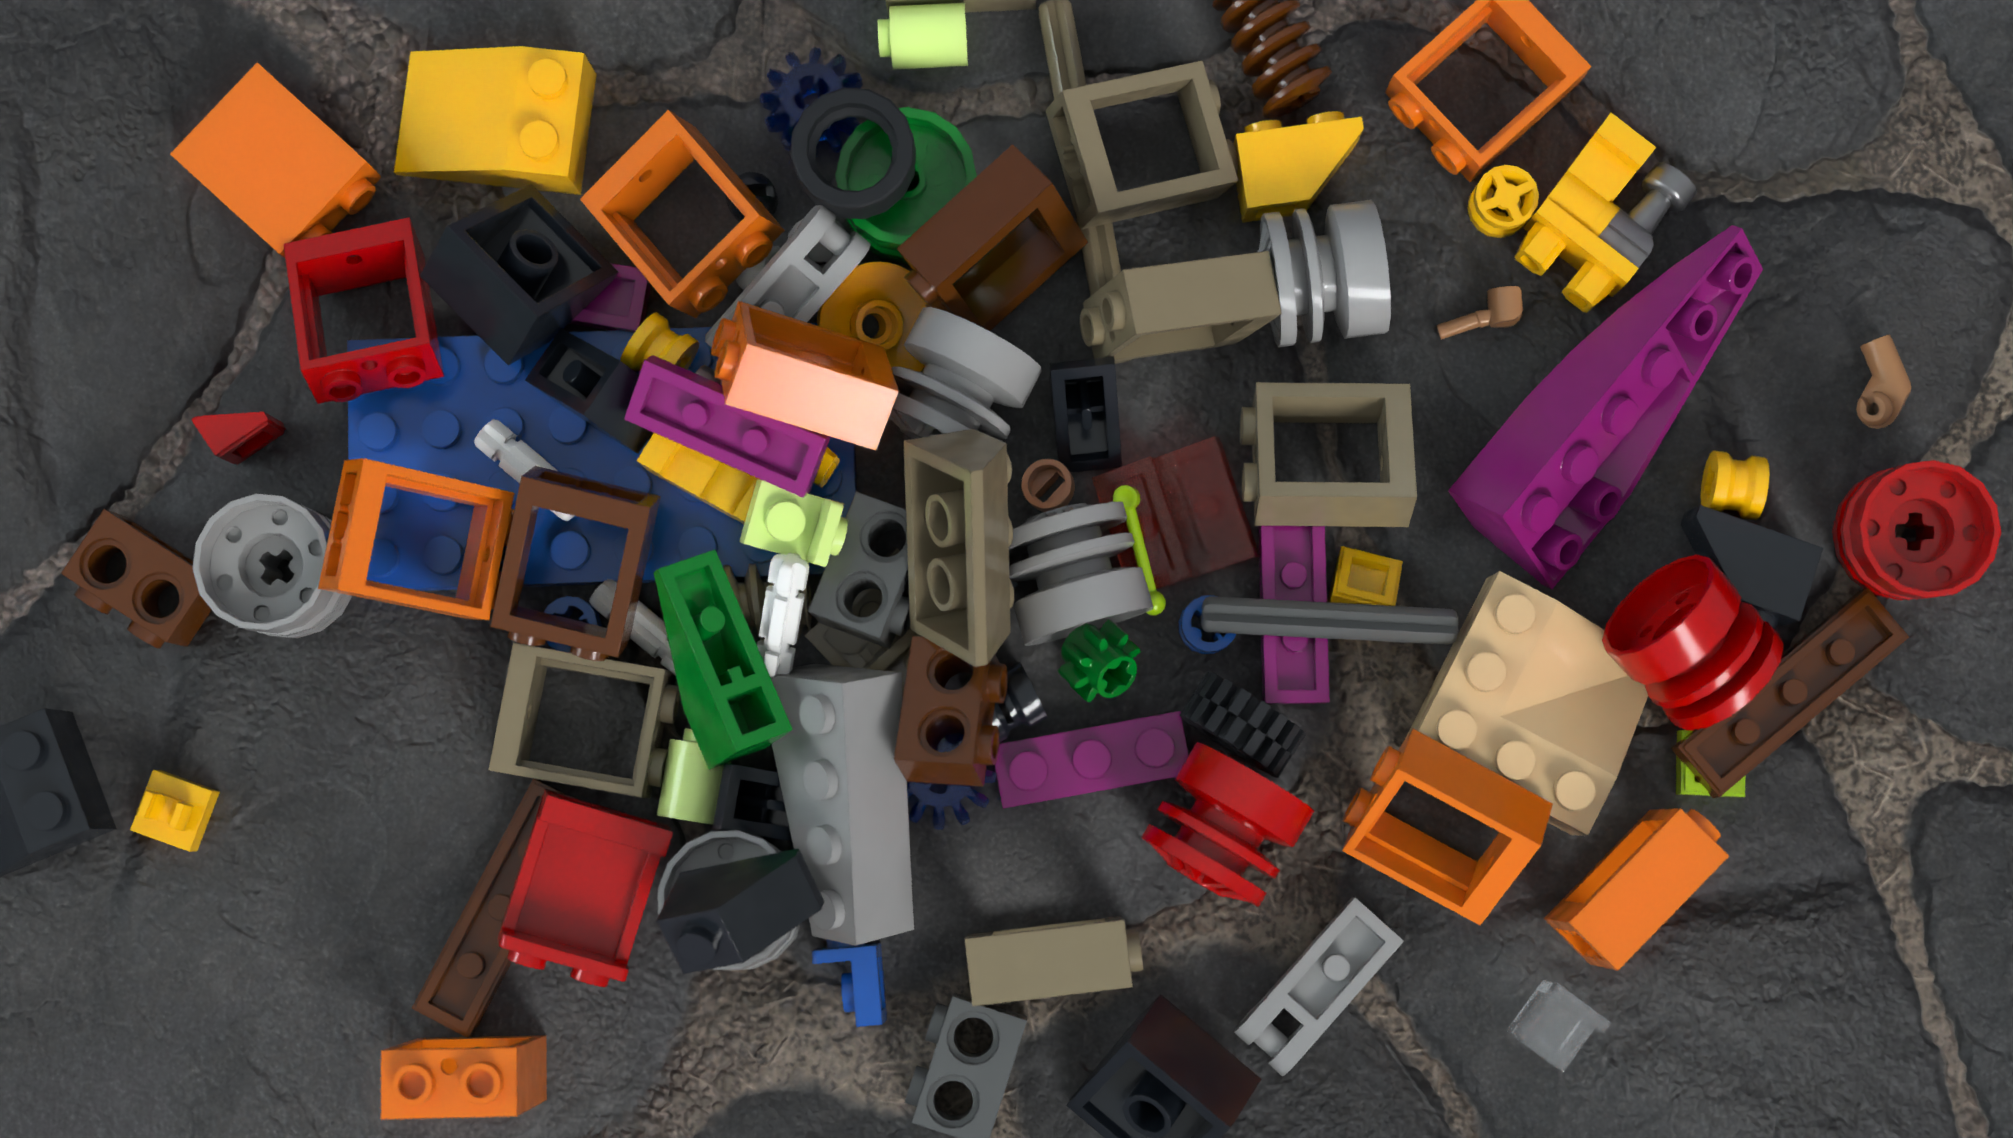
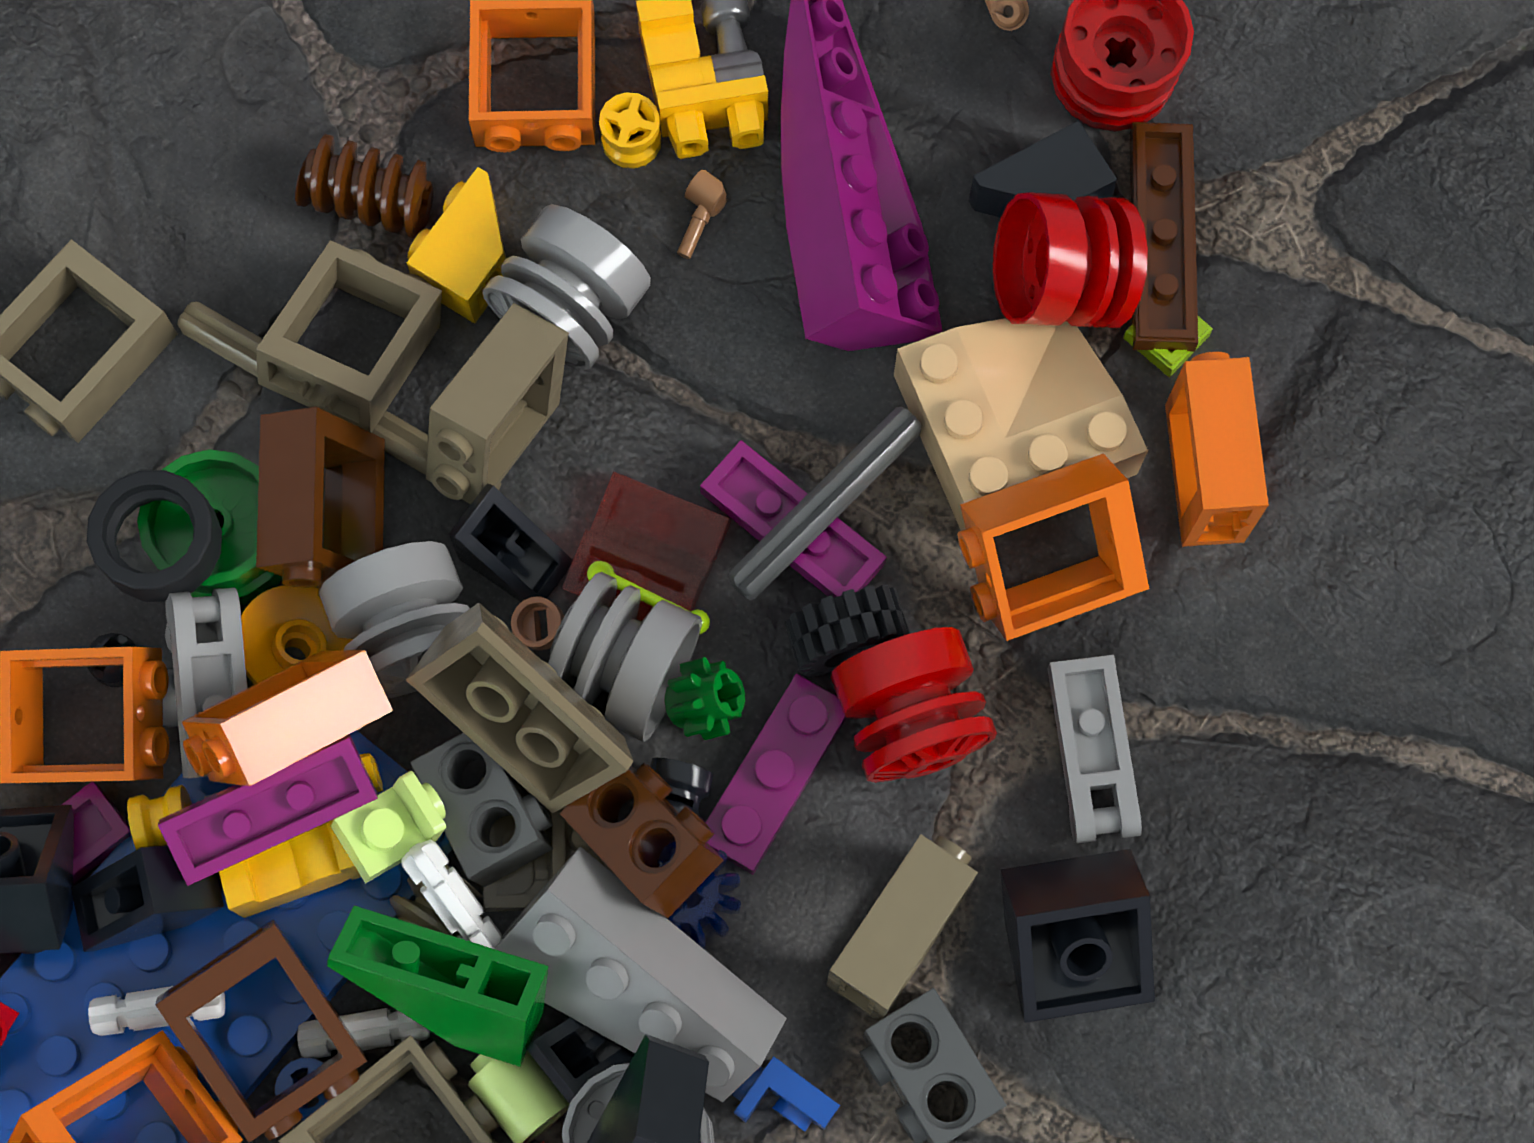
camera: 55 degrees left, 10 degrees down
(790, 90) = (61, 548): clear blue gear -> none
(924, 36) = (119, 424): yellowish green brick -> none
(1192, 636) = (748, 618): blue bush -> none
(1331, 503) = (737, 428): dark tan window -> none
(1365, 578) = (815, 456): yellow slope -> none
(1556, 1024) = (1269, 598): clear panel -> none
(1735, 484) = (979, 144): yellow wheel -> none

